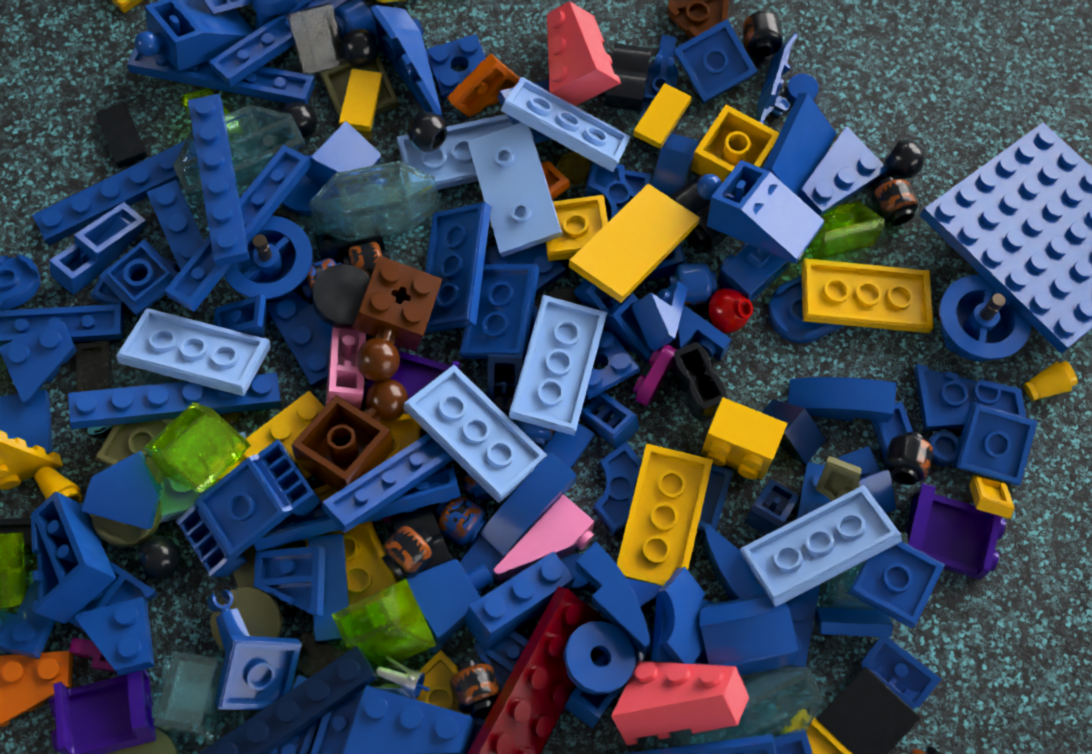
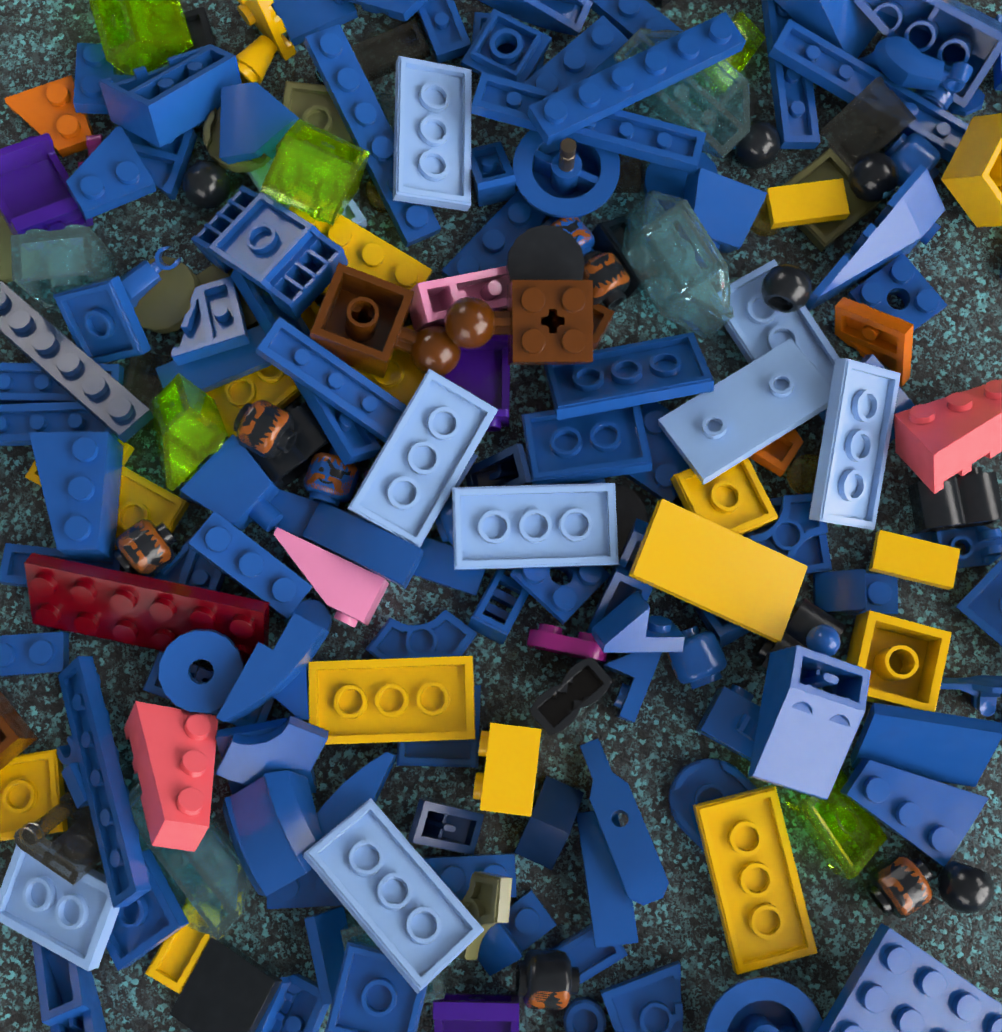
camera: 80 degrees right, 10 degrees up
(409, 681) = (131, 479): flat silver piece -> none
(729, 310) = (677, 710): red brick -> none
(822, 368) = (630, 844): none -> blue piece

